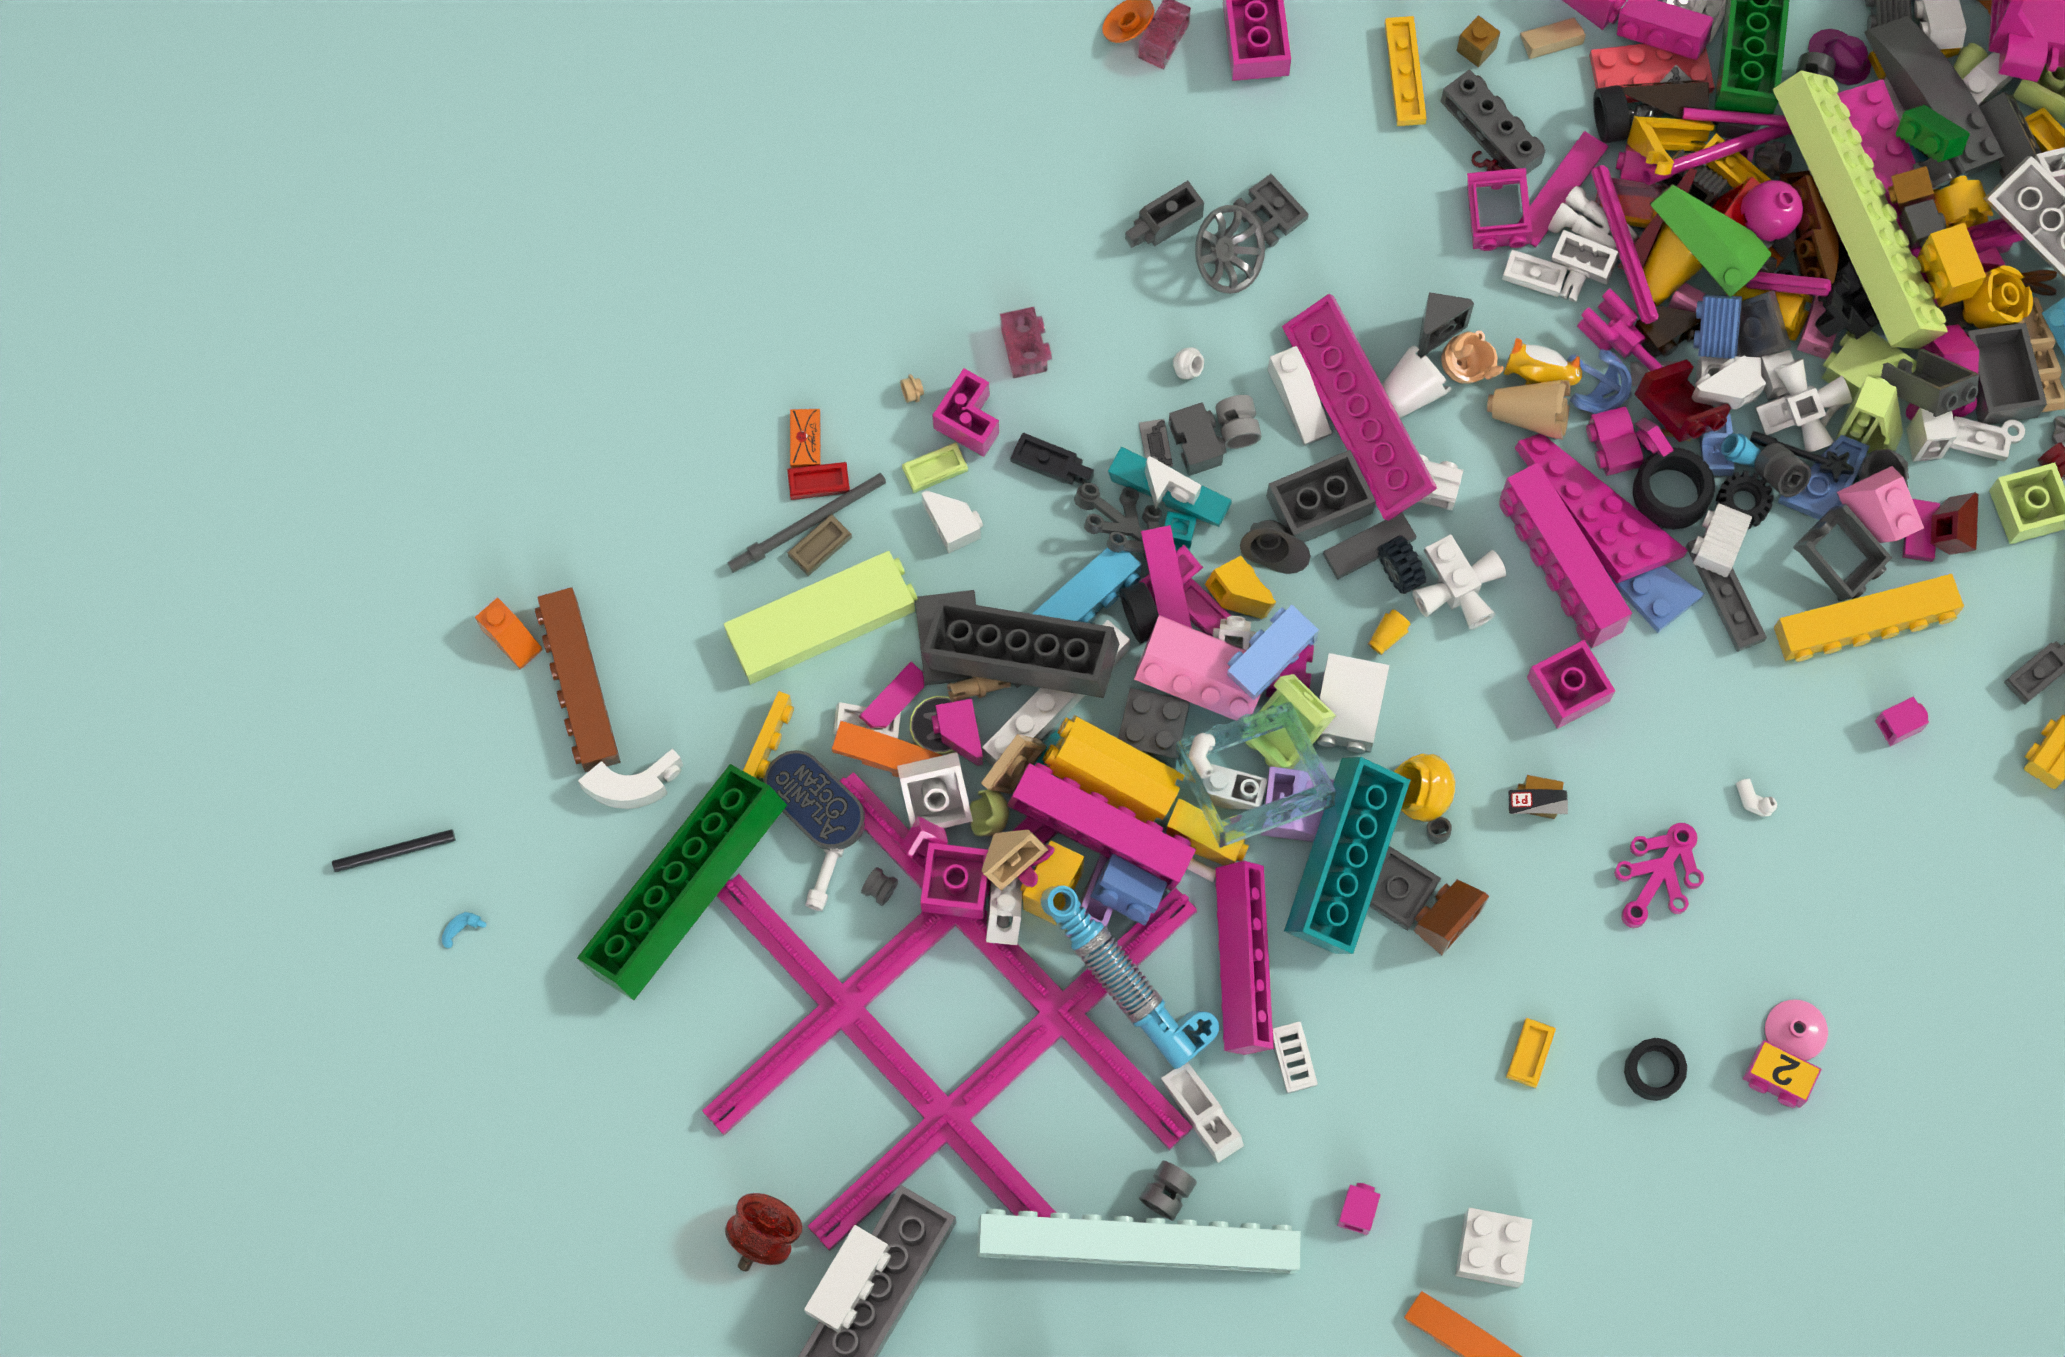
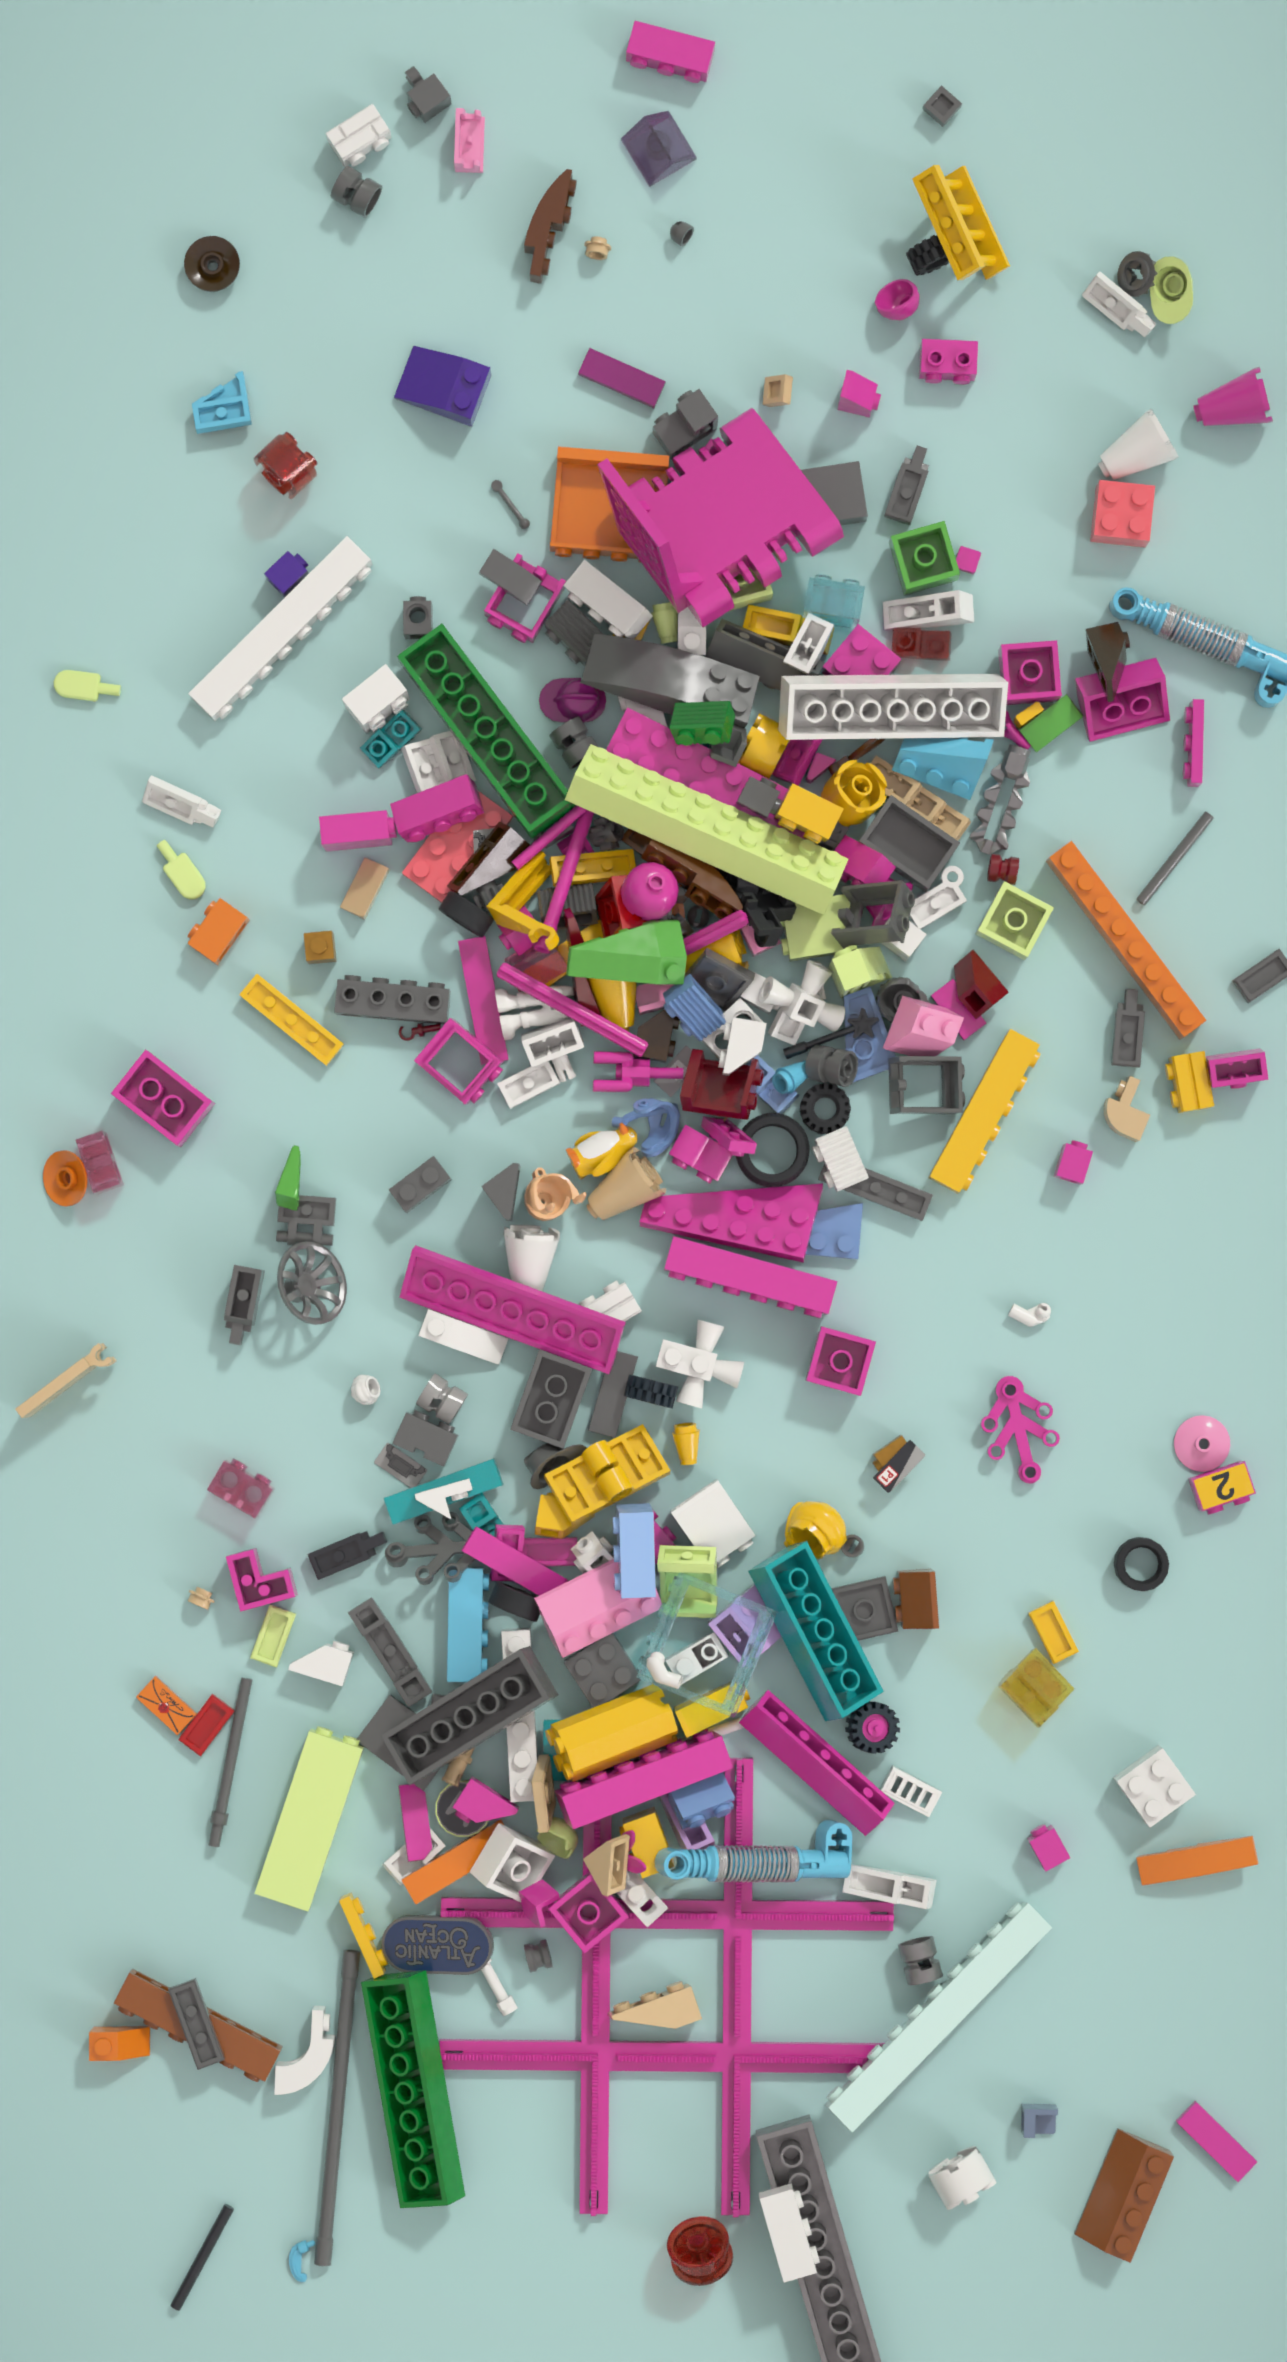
camera: 50 degrees left, 15 degrees up
(495, 930) = (324, 2241): none -> dark grey piece
(579, 670) = (196, 2023): none -> dark grey tile
(819, 545) = (254, 1767): dark tan tile -> none
(934, 1025) = (667, 2009): none -> tan slope
(978, 145) = (65, 1381): none -> tan tile
(1009, 554) = (390, 1651): none -> dark grey slope
(1288, 167) = (288, 1187): none -> bright green slope
(1309, 586) = (607, 1474): none -> yellow plate
(1315, 977) = (872, 1727): none -> black wheel
(1381, 263) = (420, 1184): none -> dark grey brick
(1475, 1076) = (1035, 1687): none -> clear yellow brick
(1911, 187) = (728, 779): pearl gold brick -> none
(1977, 724) = (1121, 1116): none -> tan brick

